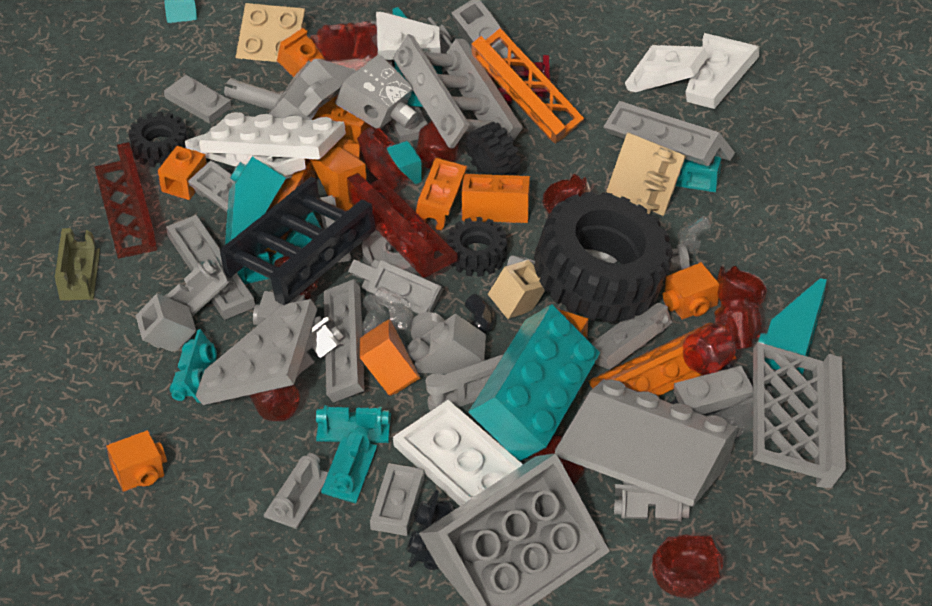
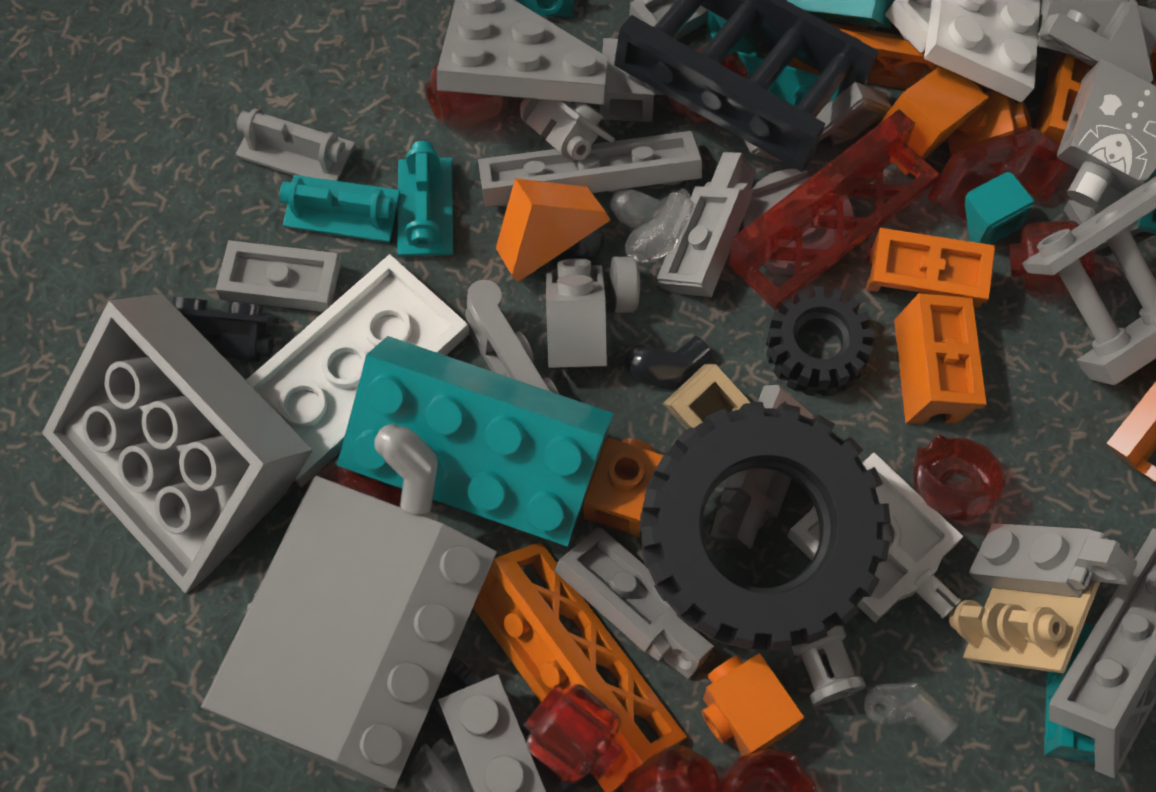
camera: 85 degrees right, 20 degrees up
(493, 151) = (1034, 339): black tyre -> none
(560, 391) = (413, 462): none -> light grey arm
(622, 158) = (1049, 559): none -> light grey hinge
(687, 565) = (111, 711): clear red hair -> none

